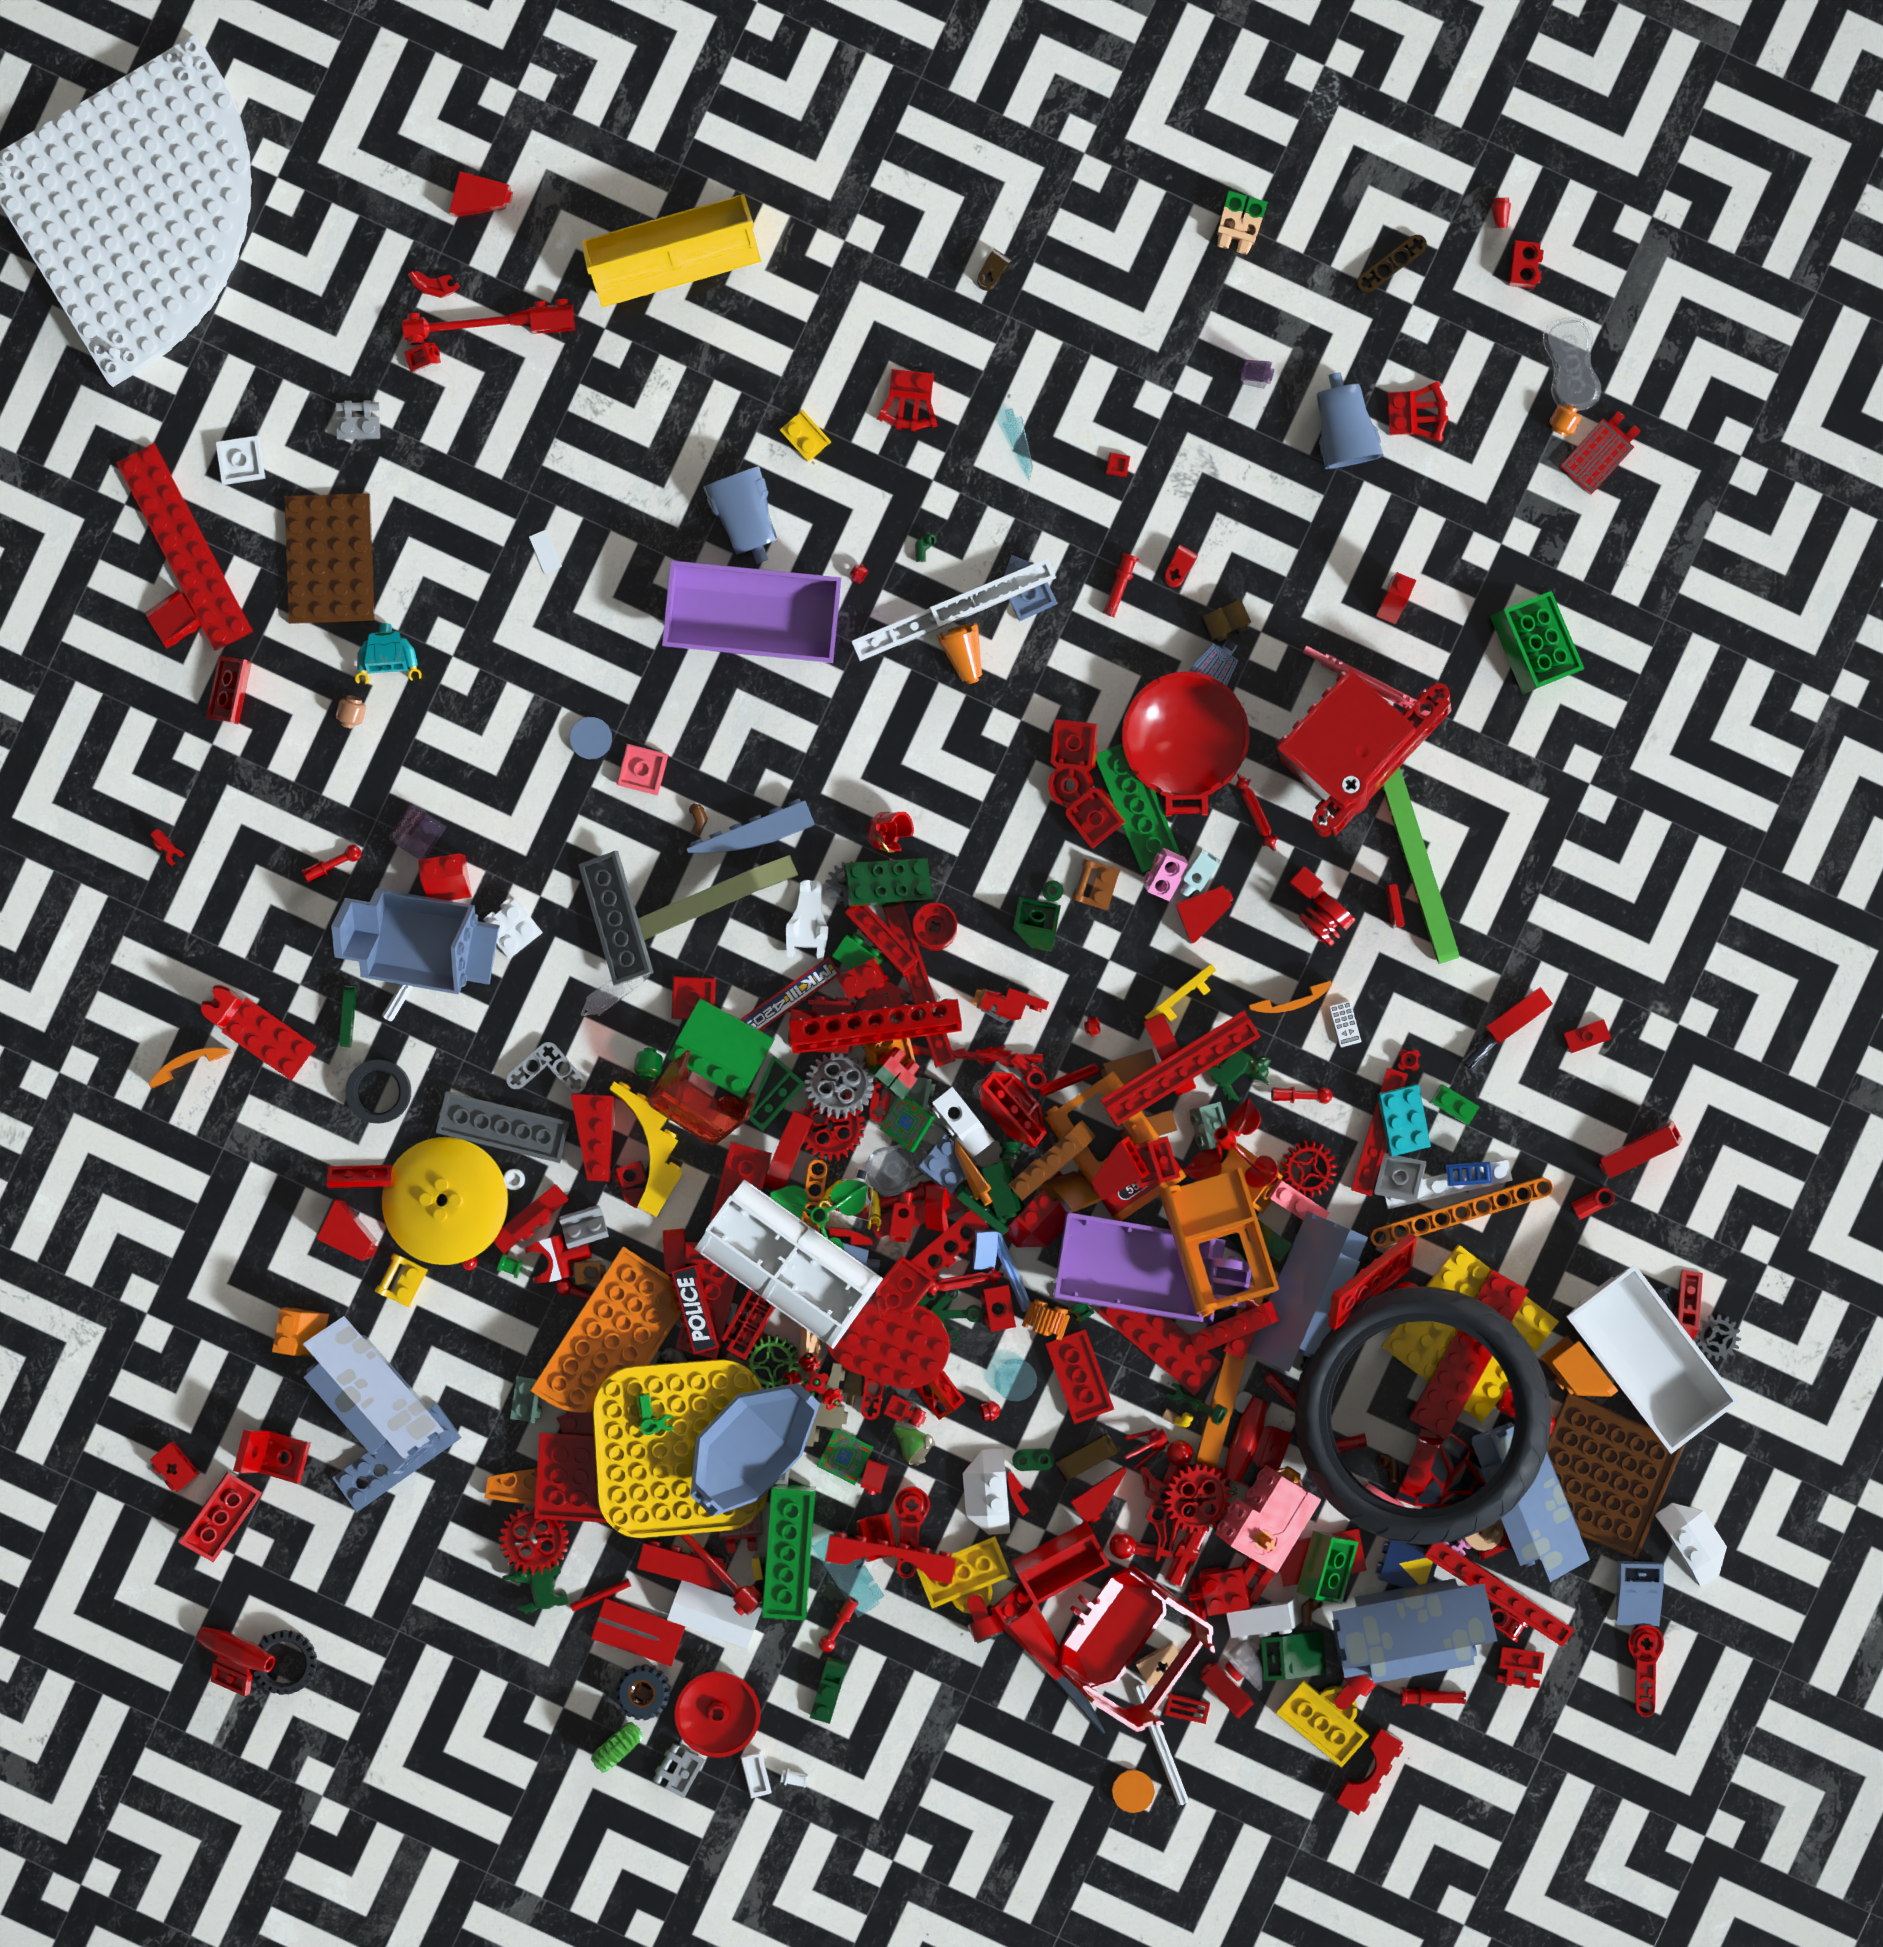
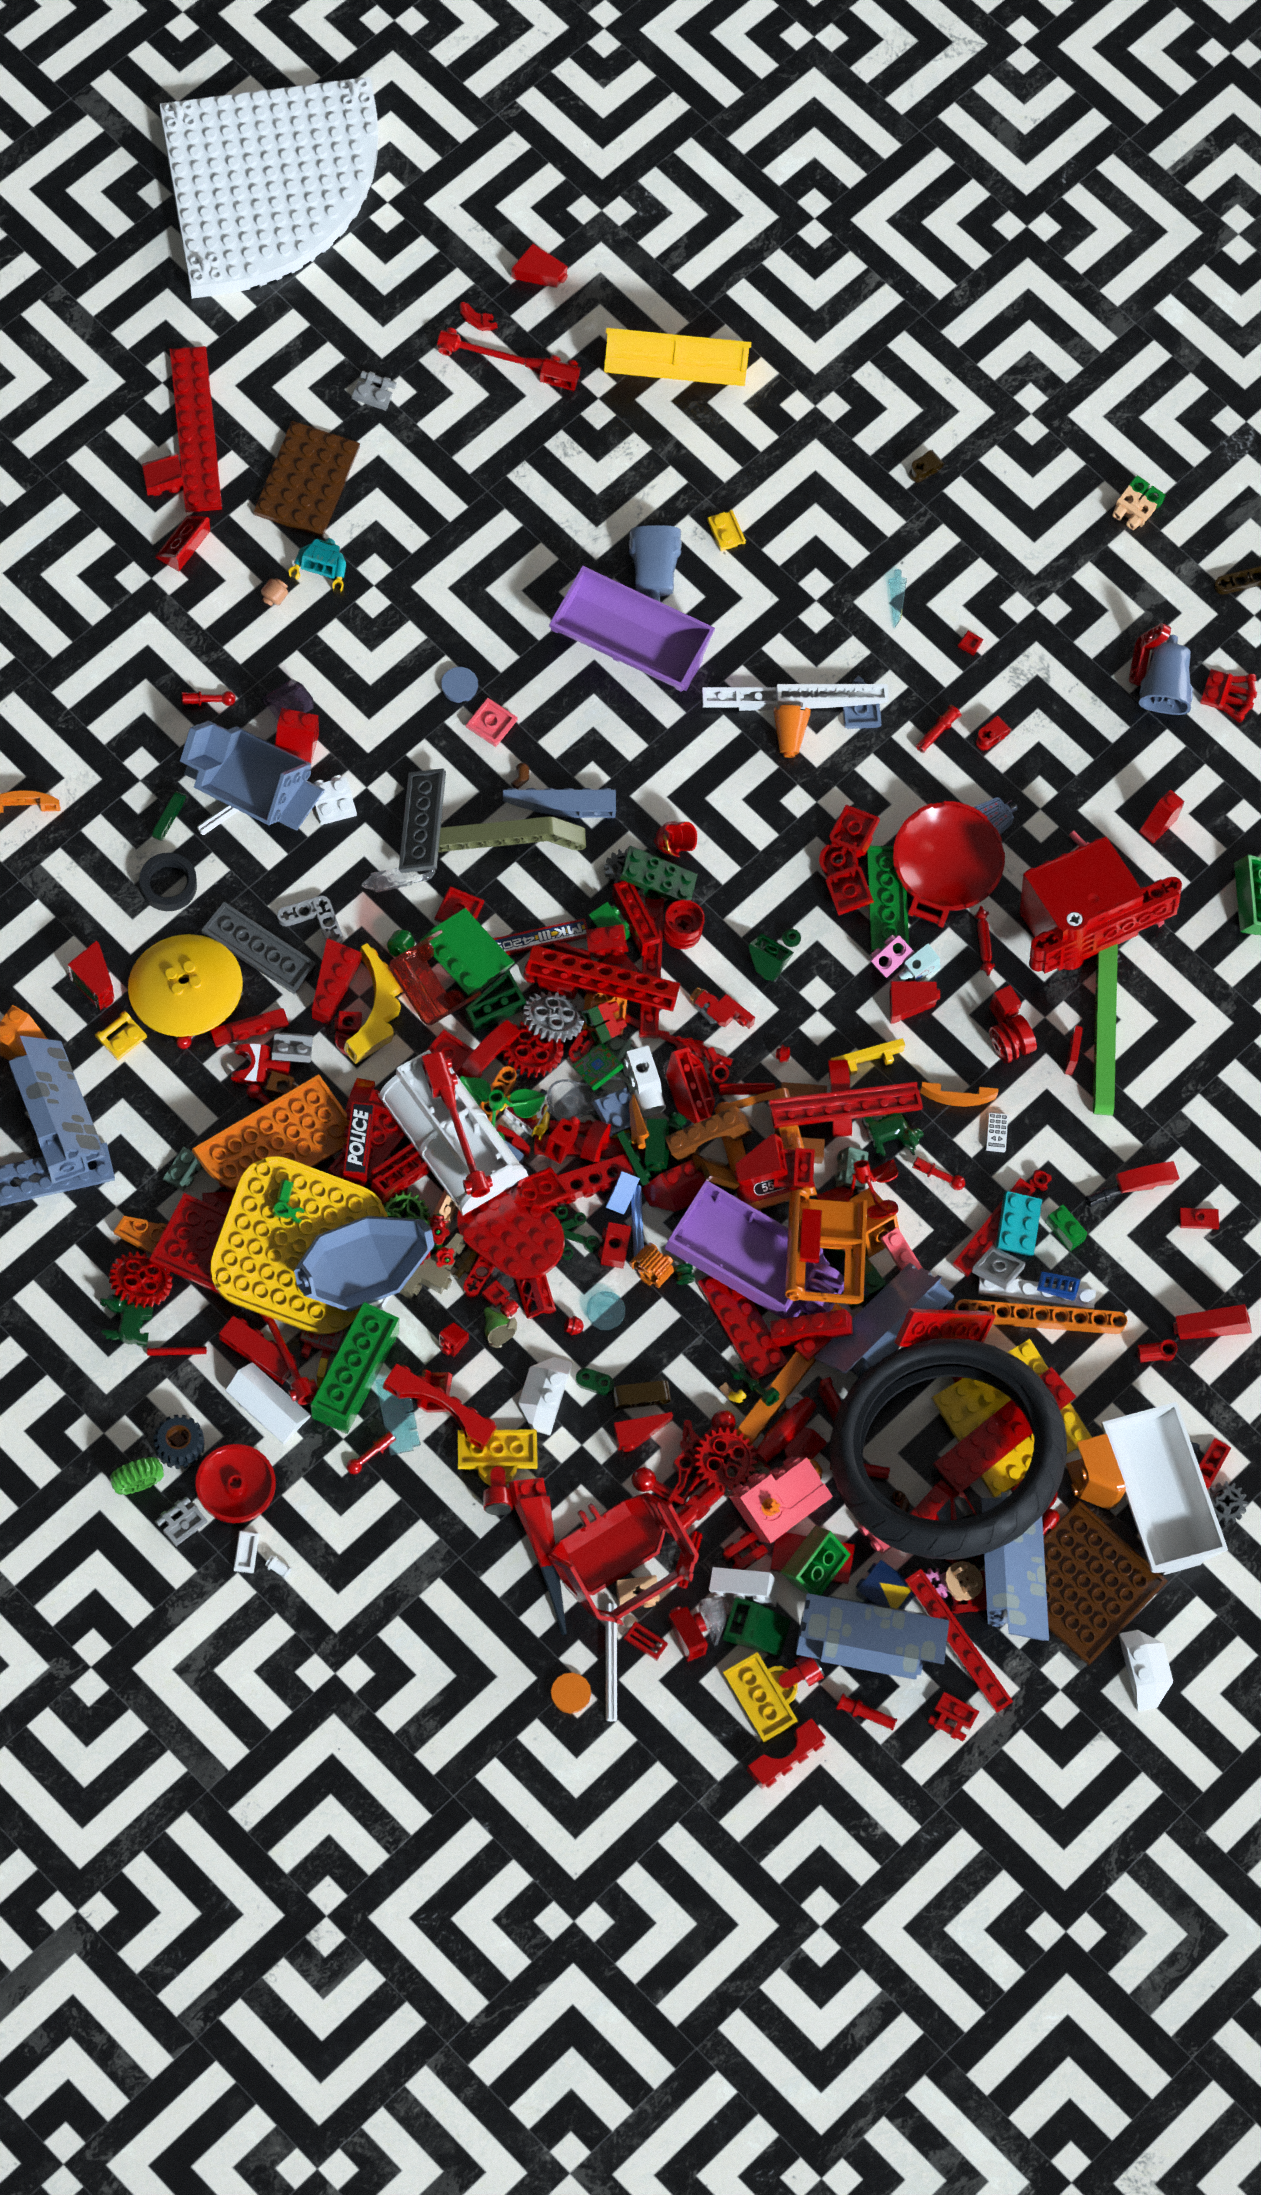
camera: 10 degrees right, 20 degrees down
(162, 842) = (78, 630): red plate -> none
(240, 460) = (268, 383): white plate -> none
(258, 1031) = (90, 797): red hinge -> none
(359, 1176) = (122, 940): red plate -> none
(422, 356) = (445, 362): red bracket -> none
(510, 1265) = (217, 1057): green bush -> none
(514, 1179) = (250, 993): white tile -> none
(545, 551) = (482, 537): white sticker -> none
(638, 1632) = (196, 1393): red tile -> none
(760, 1233) = (443, 1084): none -> red bar
(807, 924) = (578, 887): white animal -> none
(828, 1690) = (339, 1503): dark green plate -> none
(845, 1456) = (433, 1316): tile -> none
(858, 573) = (728, 643): red plate -> none
(909, 386) = (824, 525): red plate -> none
(910, 1520) = (468, 1390): red beam -> none
(923, 545) = (789, 642): dark green arm -> none
(966, 1281) = (594, 1211): red wheel -> none
(1015, 1487) = (570, 1397): red slope -> none
(1060, 1563) = (585, 1469): red piece -> none
(1079, 1376) = (662, 1327): red plate -> none
(1102, 887) = (833, 951): dark orange plate -> none
(1157, 1440) = (708, 1403): red plant -> none
(1198, 1235) = (810, 1235): none -> red tile
(1222, 1590) = (718, 1547): red plate -> none
(1226, 620) = (1015, 786): dark brown brick -> none
(1257, 373) = (1110, 614): clear purple slope -> none
(1306, 397) = (1143, 645): none -> red beam
(1308, 1608) = (785, 1596): reddish brown arm -> none
(1313, 1160) = (933, 1222): red gear -> none
(1508, 1624) = (956, 1674): red piece -> none
(1639, 1592) = (1082, 1691): sand blue slope -> none
(1645, 1663) = (1066, 1755): red beam -> none

